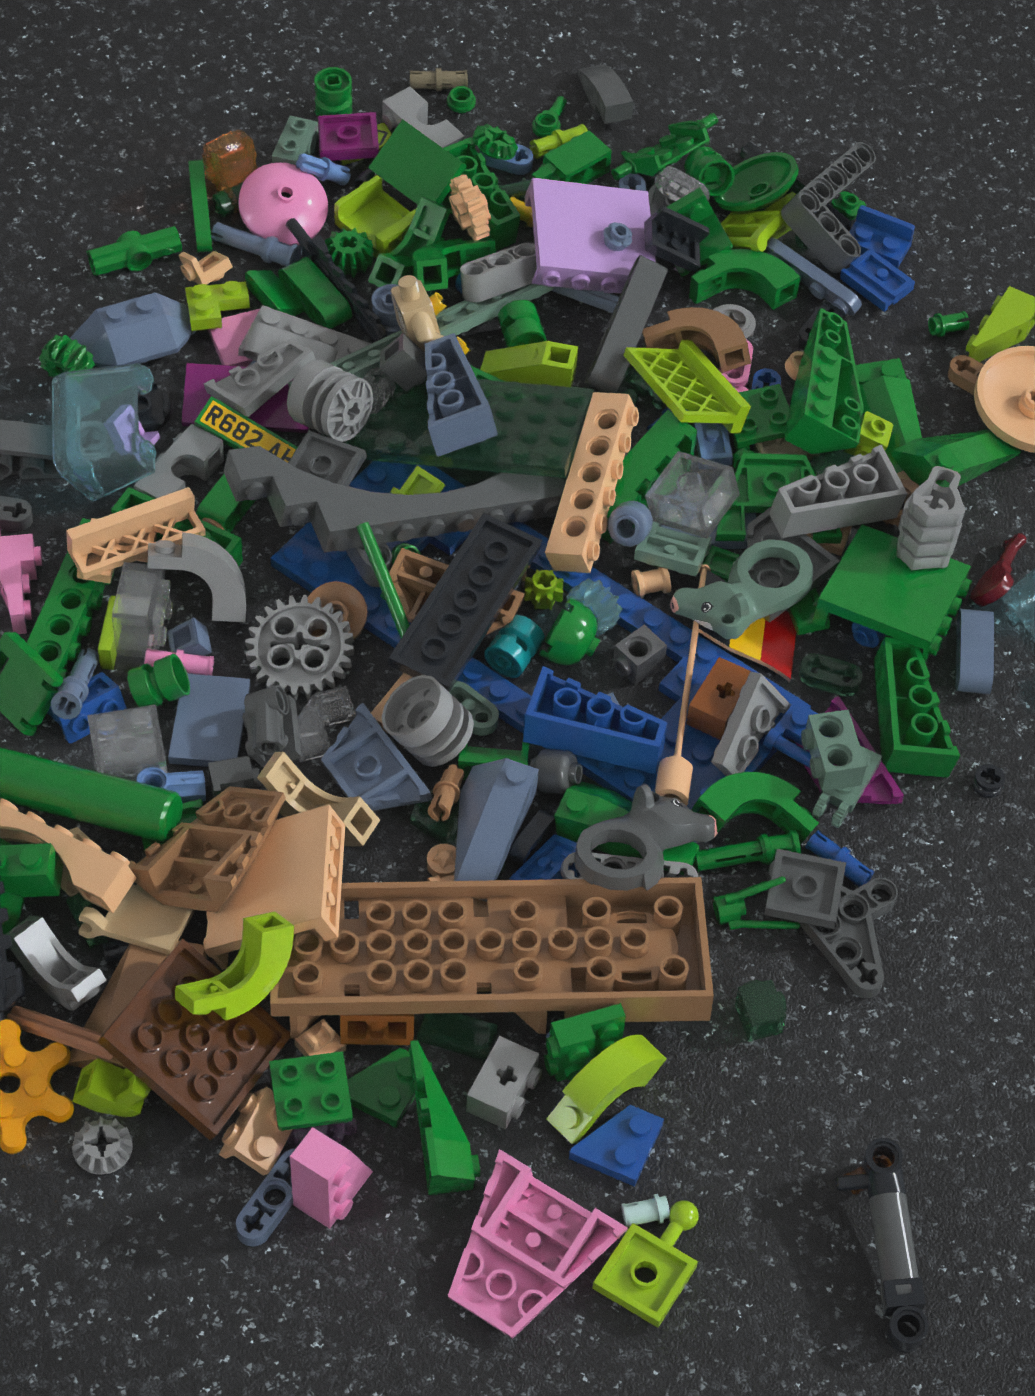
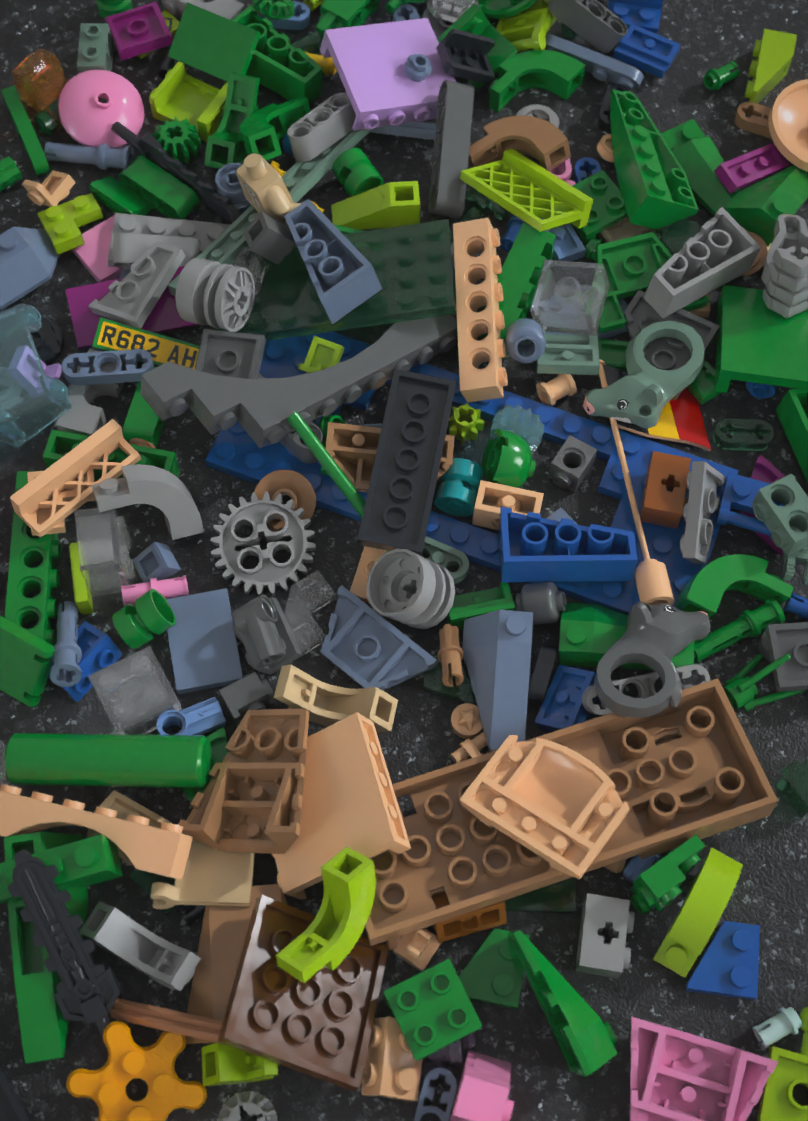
camera: 15 degrees left, 10 degrees up
(195, 434) = (119, 375): none -> sand blue beam
(323, 169) = (127, 67): medium blue axle -> none
(469, 207) = (277, 72): light nougat gear -> none
(482, 929) = (547, 802): none -> light nougat slope
(562, 665) = (494, 495): none -> light nougat brick
(874, 432) = (706, 198): lime bracket -> none
(938, 419) = (751, 168): none -> magenta plate

